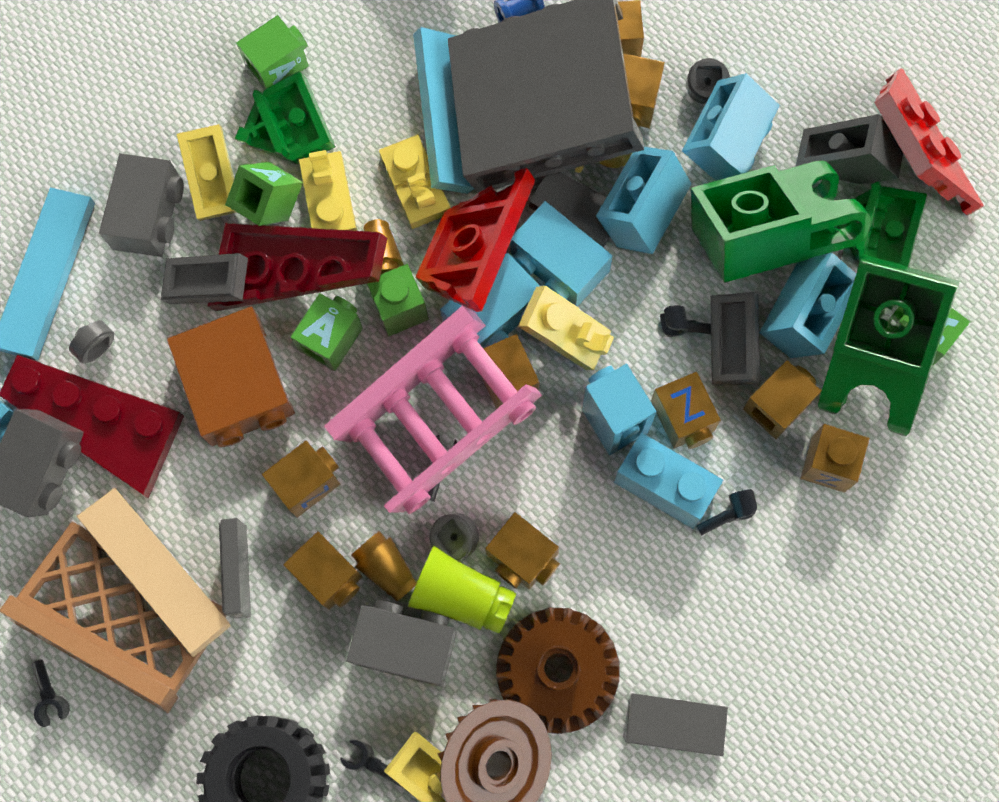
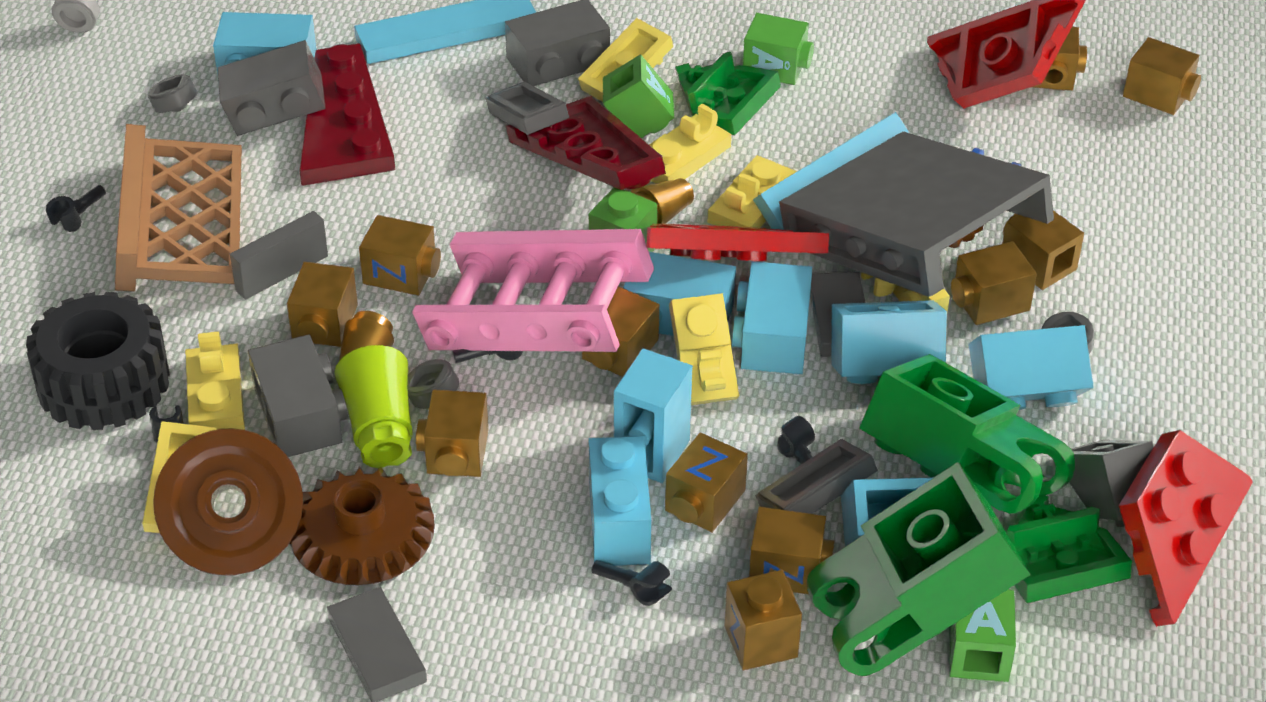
camera: 50 degrees right, 30 degrees down
(91, 341) = (409, 75): dark grey tile -> none
(154, 572) = (234, 207): tan tile -> none
(230, 378) = (451, 165): dark orange panel -> none
(327, 330) = (552, 200): bright green brick -> none
(341, 698) = (214, 384): none -> light yellow plate

